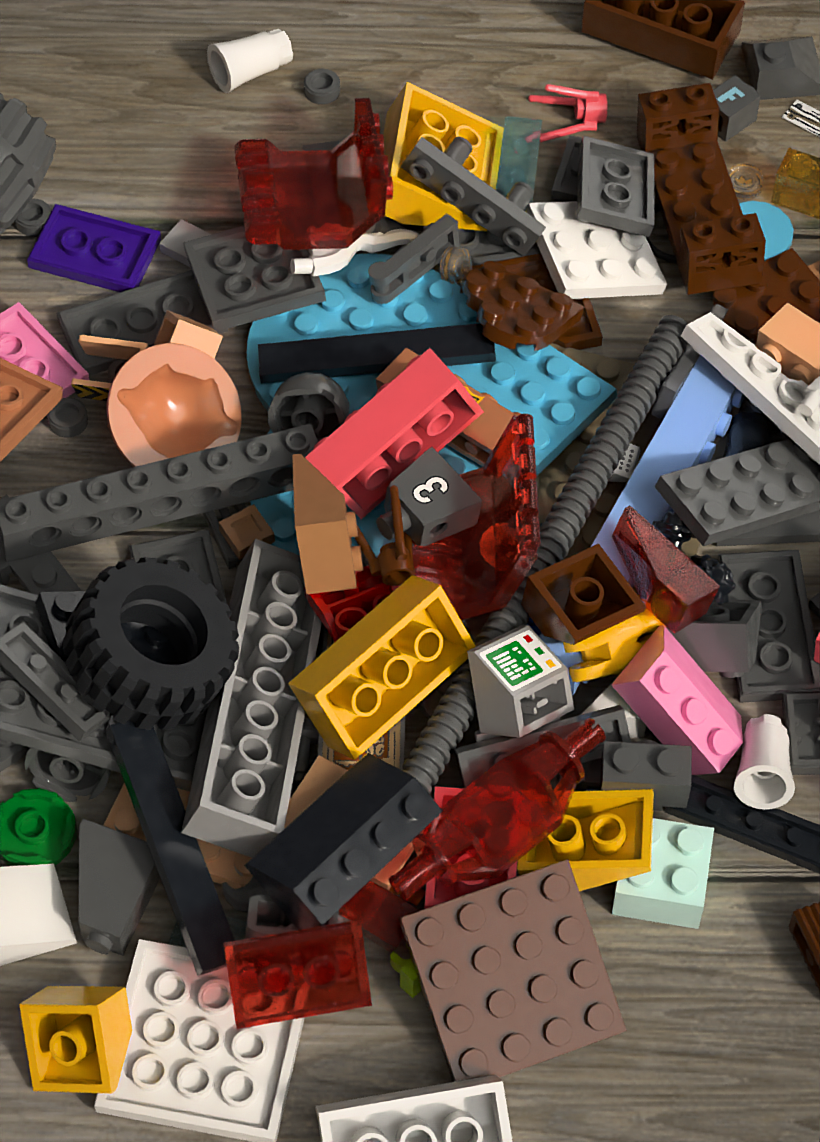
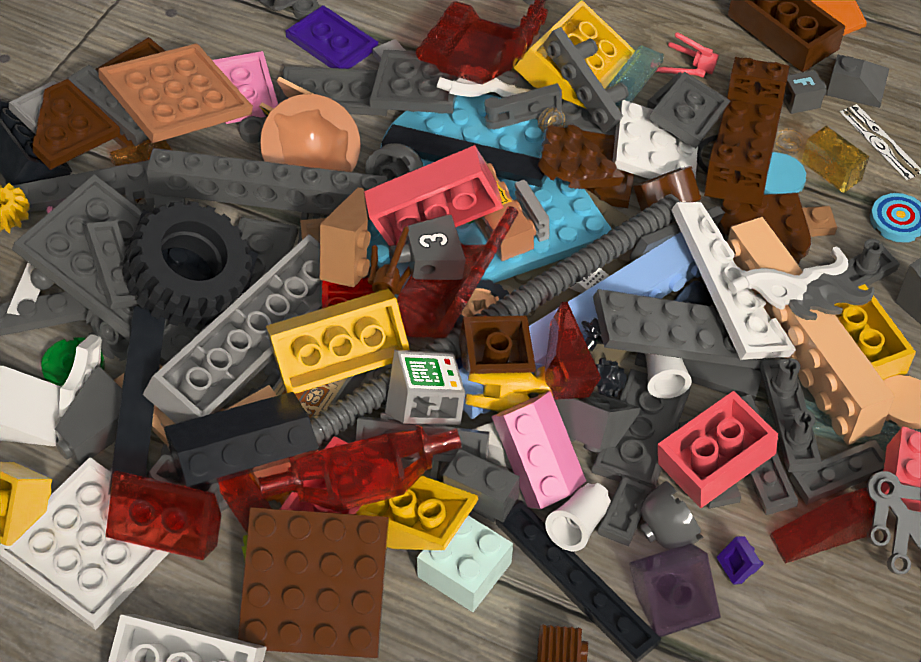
camera: 25 degrees right, 5 degrees down
(65, 841) = (86, 360): none -> white tile
(188, 332) = (351, 101): light nougat panel -> none
(508, 394) = (532, 209): none -> light grey tile
(641, 306) = (678, 182): none -> reddish brown brick
(773, 549) = (667, 376): none -> white plant

